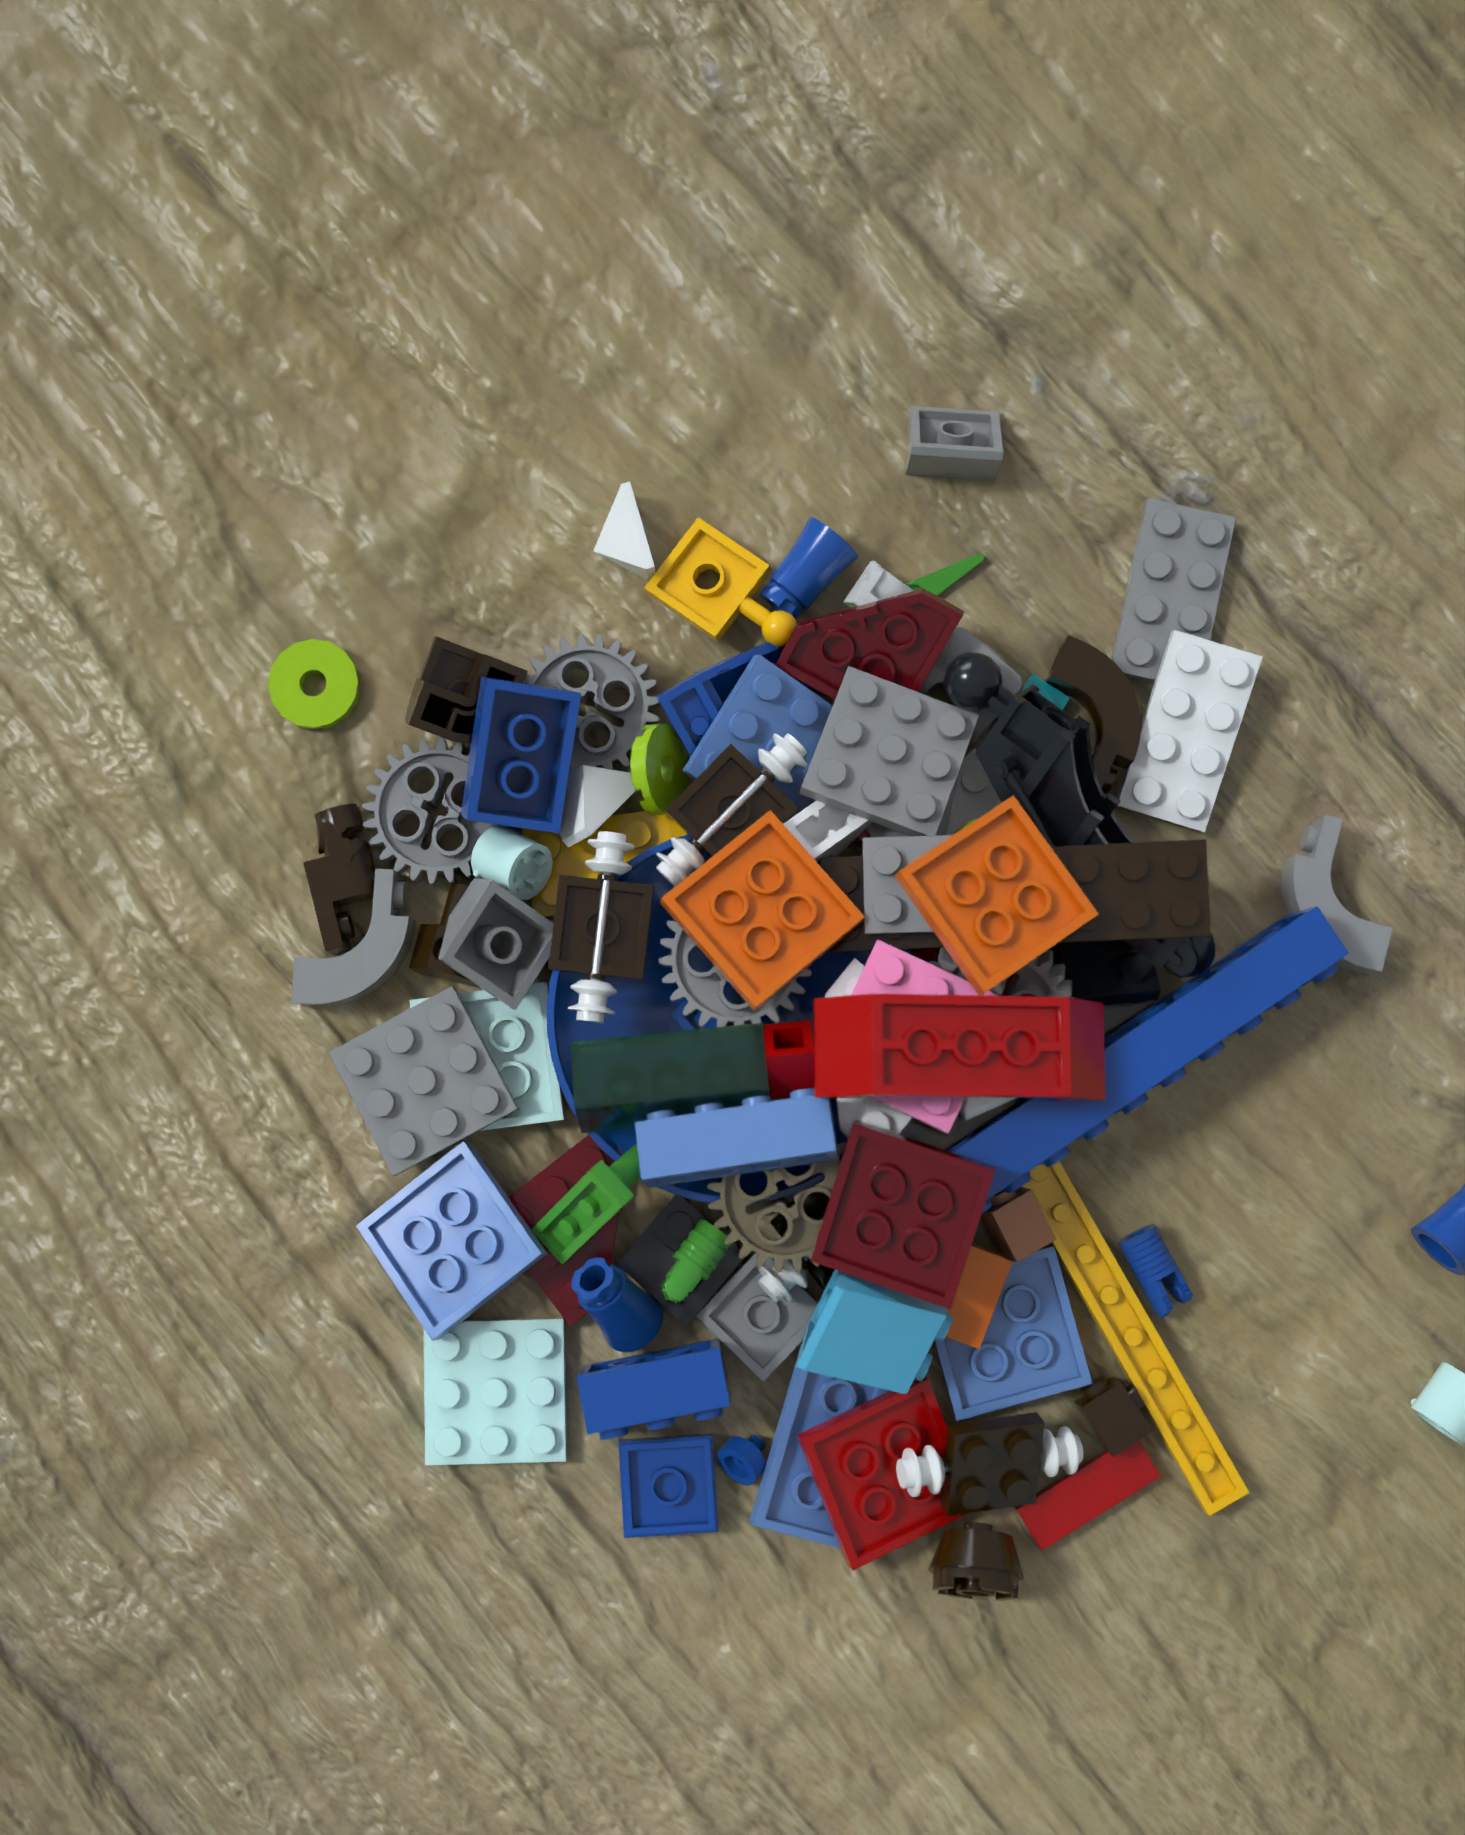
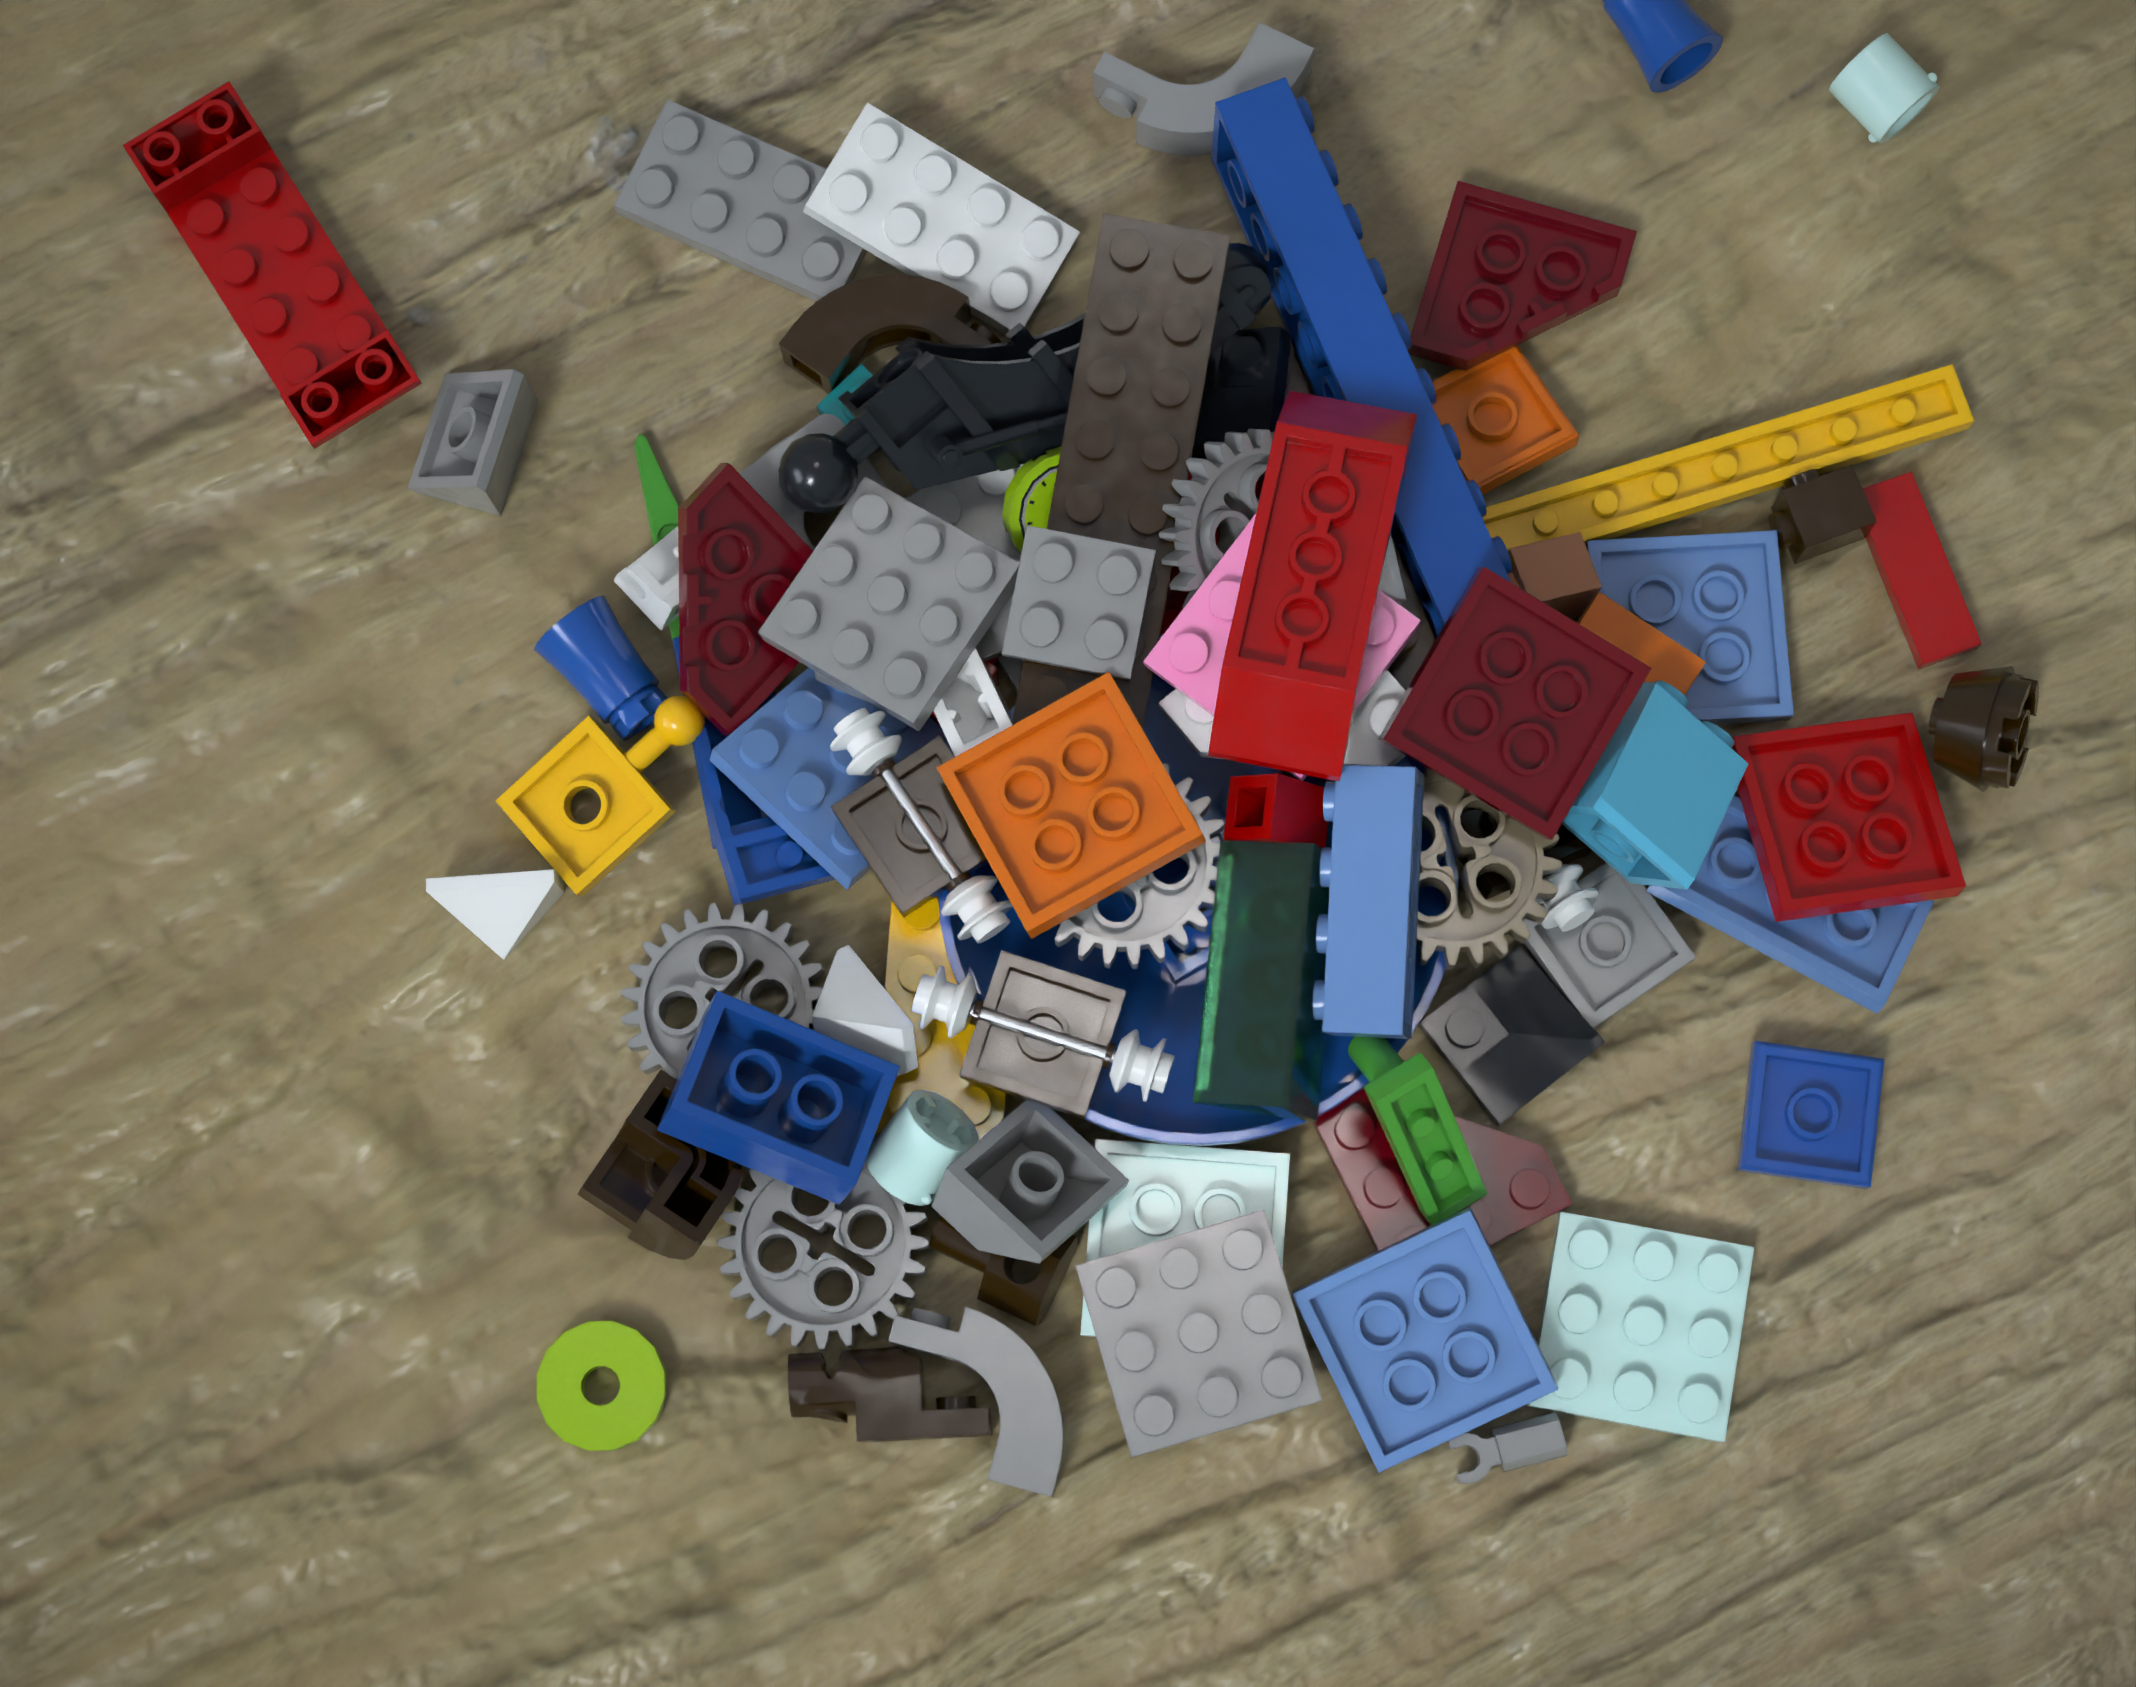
camera: 75 degrees left, 5 degrees down
(393, 1316) = (1513, 1446): none -> light grey bar
(617, 1305) = (1562, 1125): blue plant -> none
(654, 1388) = (1678, 1096): blue brick -> none
(658, 767) = (837, 920): lime tile -> none
(694, 1261) = (1518, 1011): bright green hinge -> none
(742, 1459) = (1794, 1007): blue tile -> none
(990, 1463) = (1857, 679): dark brown plate -> none
(996, 895) = (1121, 489): orange plate -> none
(1048, 273) = (272, 264): none -> red slope
(1131, 1162) = (1502, 419): none -> orange plate
(1150, 1263) = (1641, 420): blue hinge -> none
(1244, 1151) = (1512, 274): none -> dark red plate

